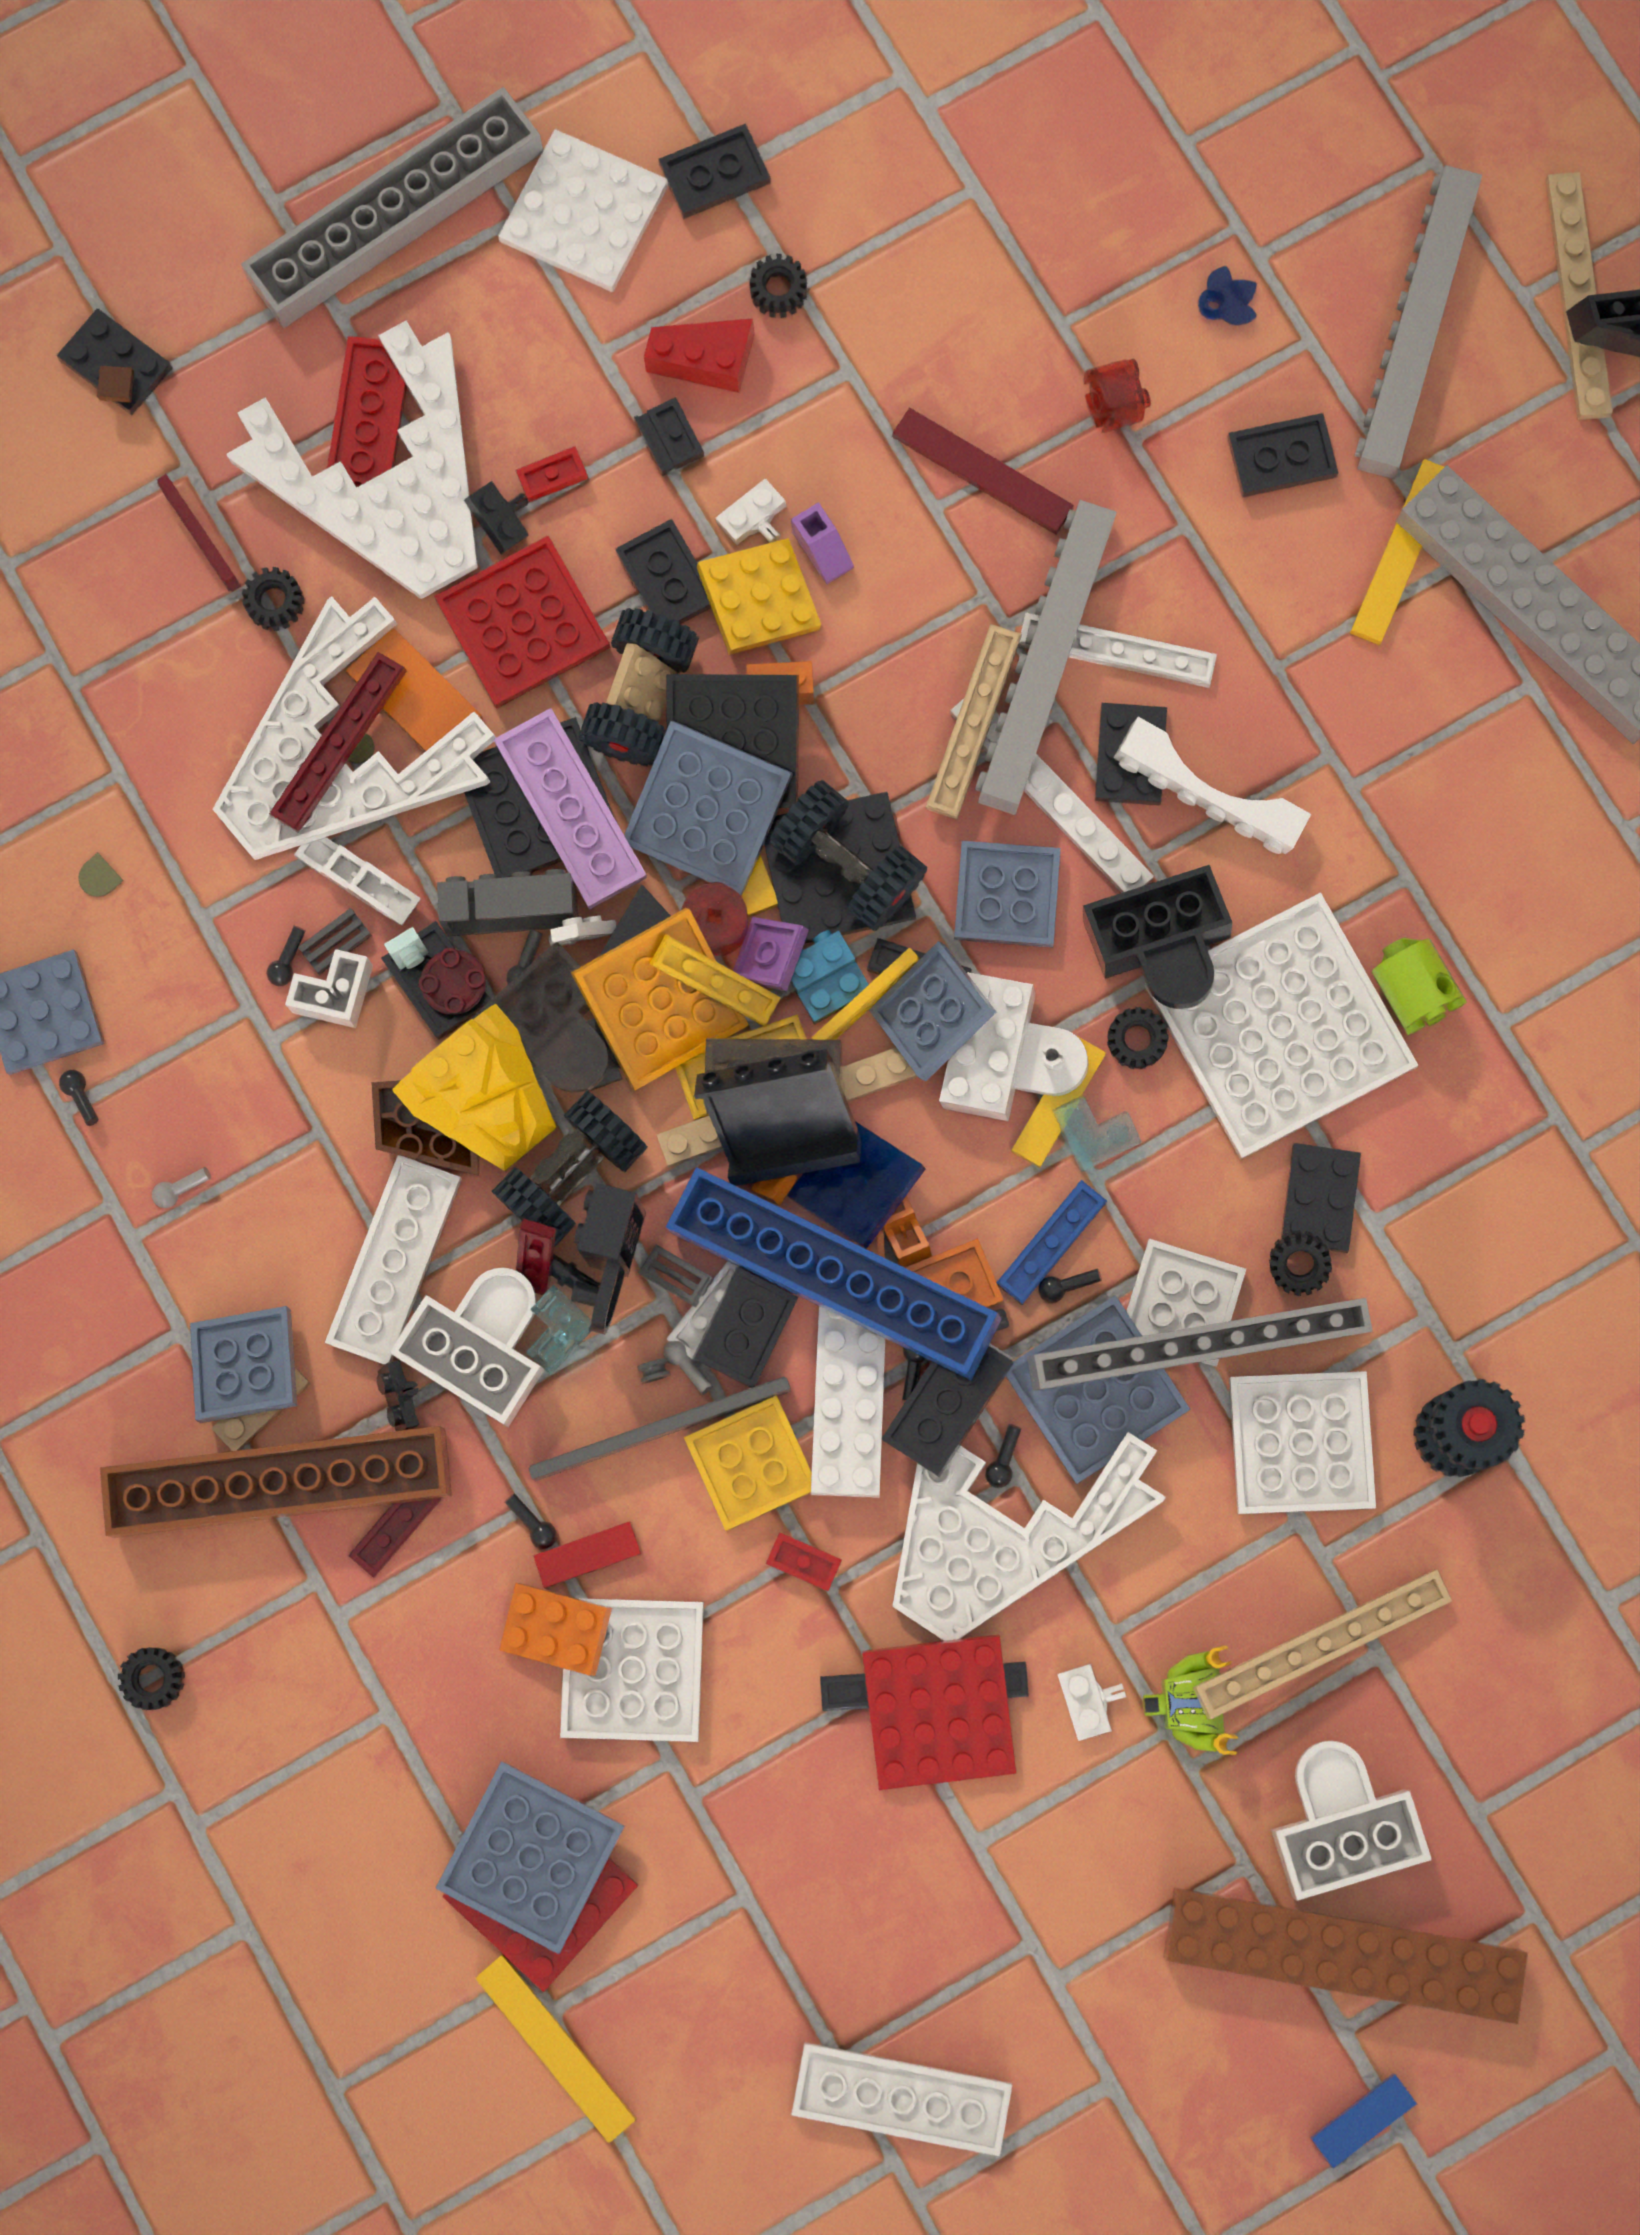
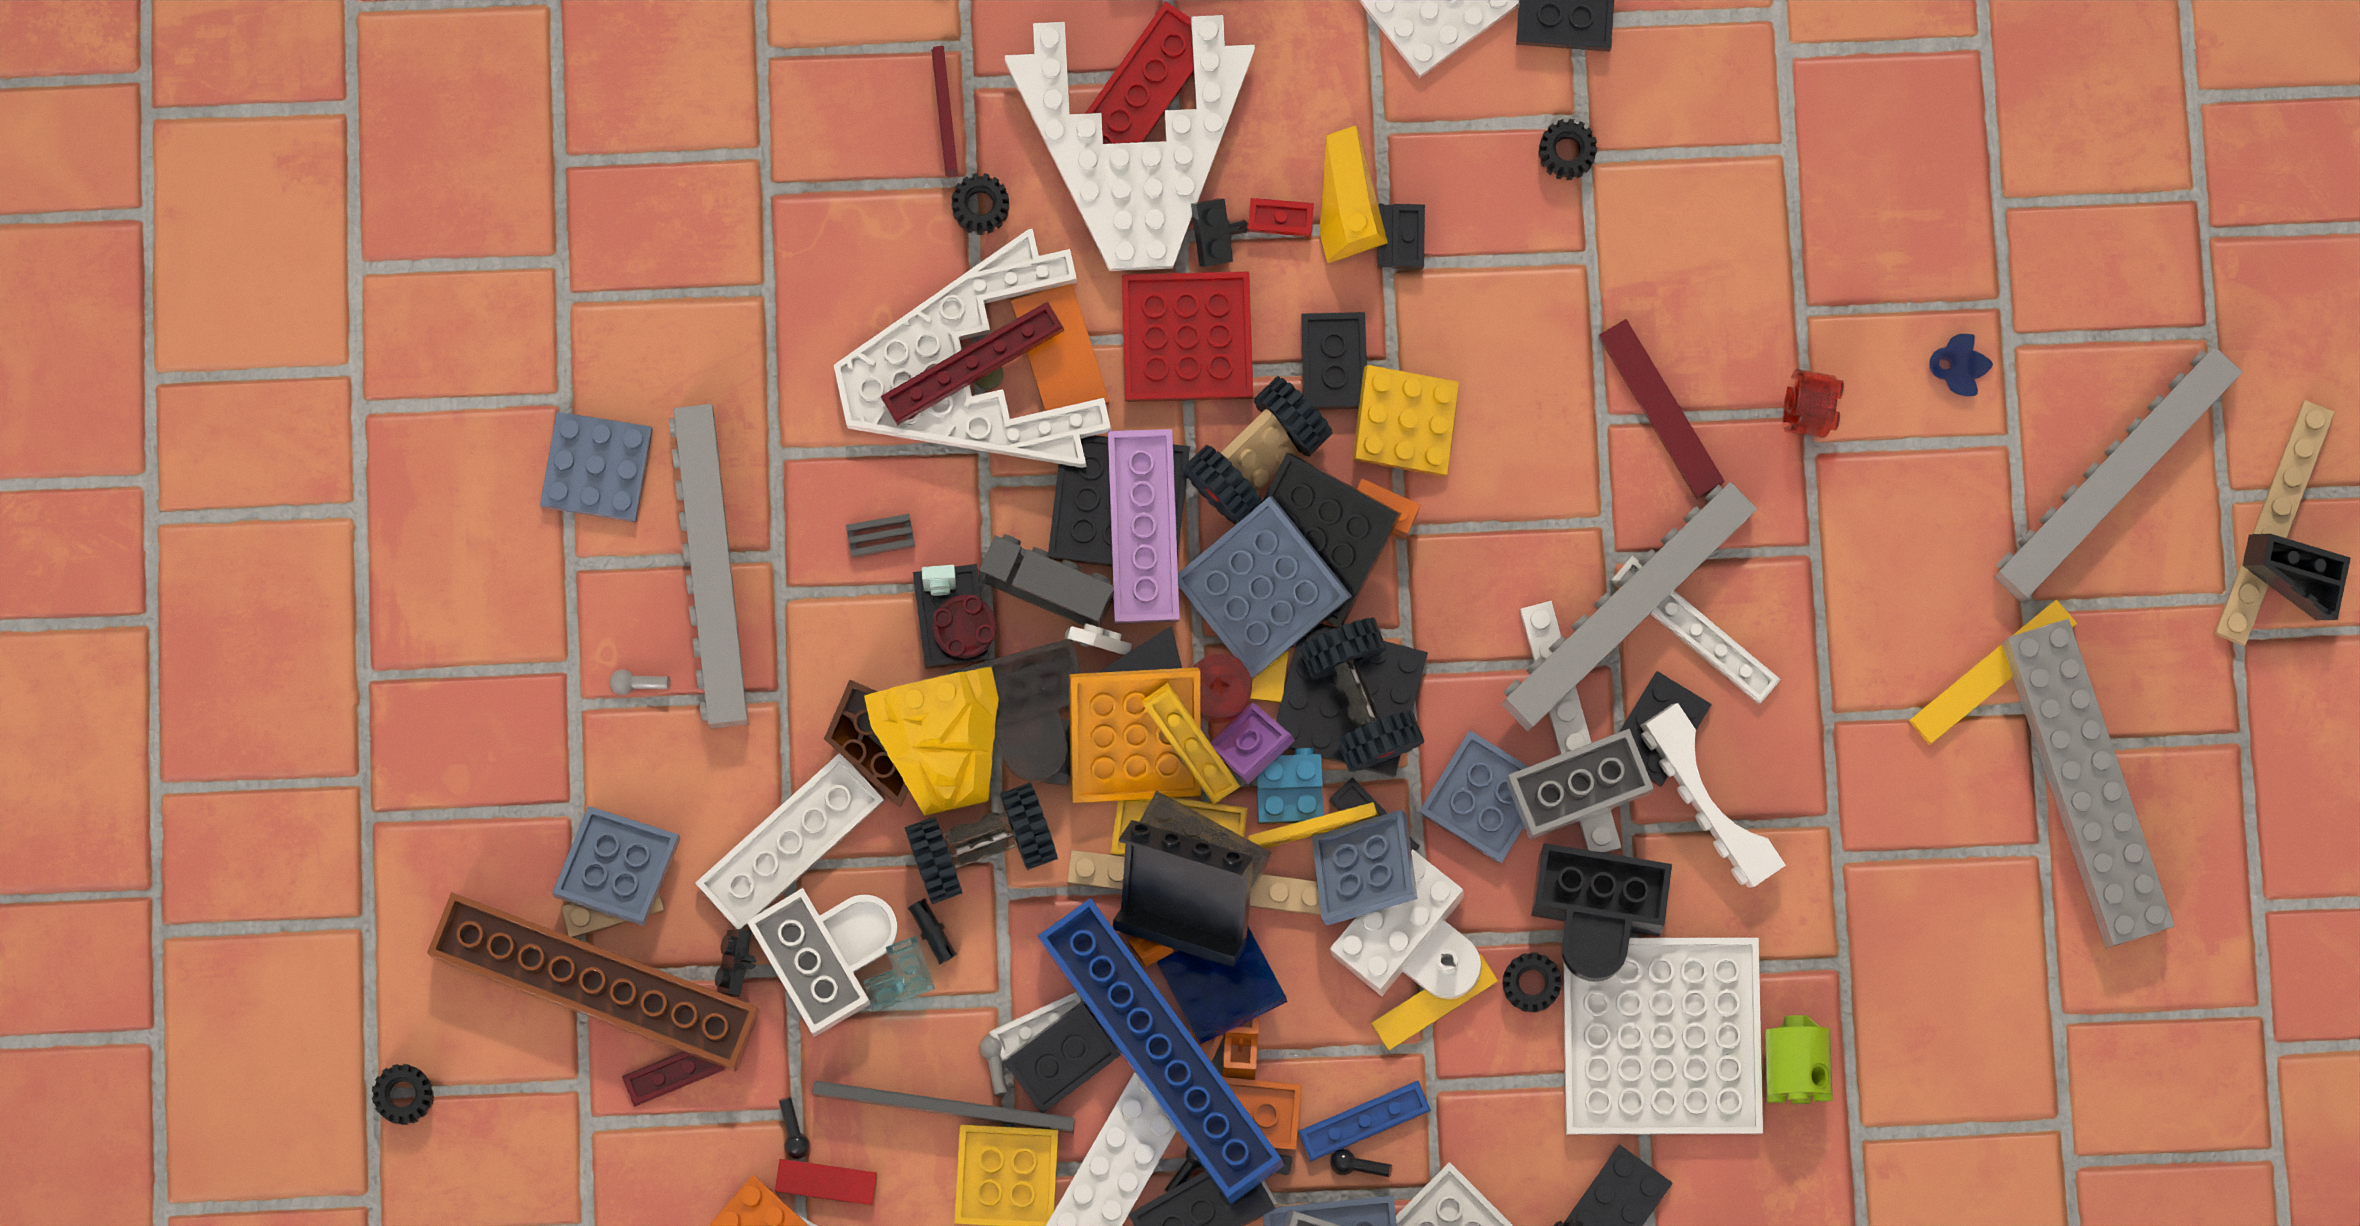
camera: 15 degrees right, 0 degrees up
(73, 1084) = (591, 544): black bar -> none
(98, 877) = (704, 372): olive piece -> none
(192, 1048) = (710, 566): none -> light grey brick
(280, 971) = (820, 537): black bar -> none
(338, 997) = (858, 588): white brick -> none
(359, 878) = (929, 492): white slope -> none
(527, 955) = (1038, 636): dark grey bar -> none
(536, 1254) = (914, 902): dark red tile -> none
(606, 430) = (1349, 205): none -> yellow wedge
(607, 1244) = (981, 926): black brick -> none
(653, 1370) = (964, 1053): dark grey bush -> none
(699, 1289) = (1038, 1003): dark grey tile -> none
(701, 352) = (1468, 176): red wedge -> none
(753, 514) = (1439, 343): white plate -> none
(821, 543) = (1484, 403): medium lavender slope -> none
(973, 721) = (1534, 630): tan tile -> none
(1087, 836) = (1579, 784): none -> light grey brick
(1093, 1142) = (1443, 1052): clear light blue plate -> none
(1282, 455) = (1933, 531): black plate -> none

